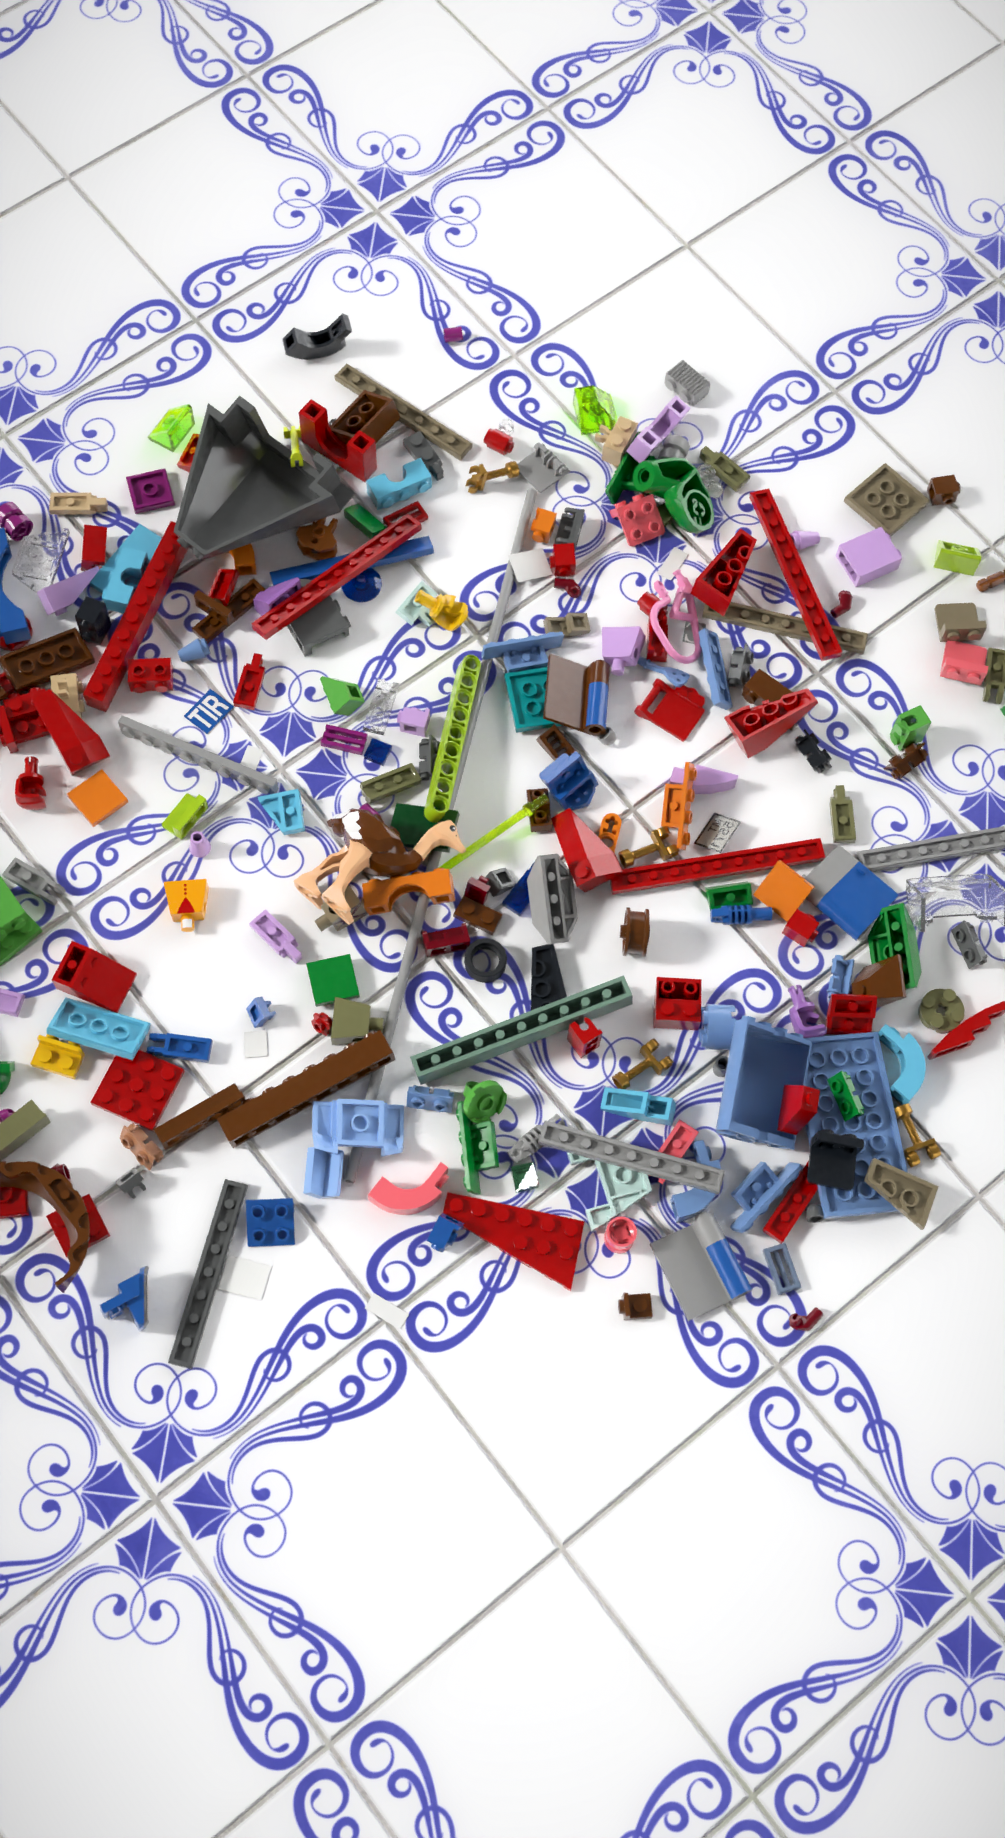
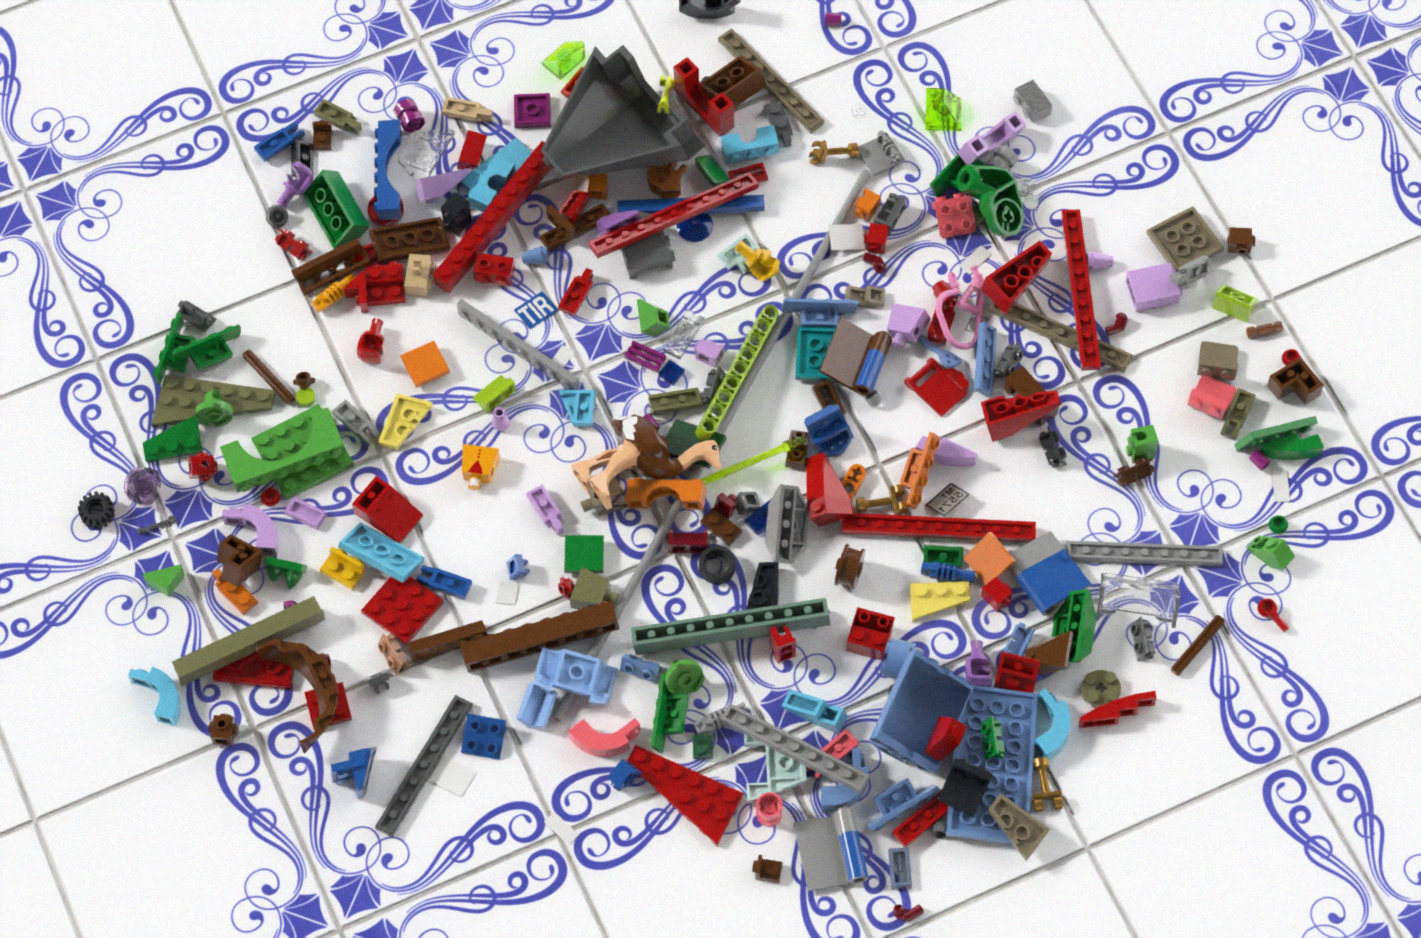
camera: 20 degrees right, 5 degrees down
(73, 738) = (416, 309): red wedge -> none
(87, 867) = (403, 419): none -> light yellow wing
(499, 441) = (848, 123): red brick -> none
(617, 440) = (953, 140): tan brick -> none
(622, 1080) = (838, 665): pearl gold bar -> none
(725, 468) = (1045, 184): olive hinge -> none
(734, 945) = (935, 597): none -> light yellow wing
(842, 817) = (1061, 508): olive hinge -> none
(906, 532) = (1191, 271): none -> light grey hinge

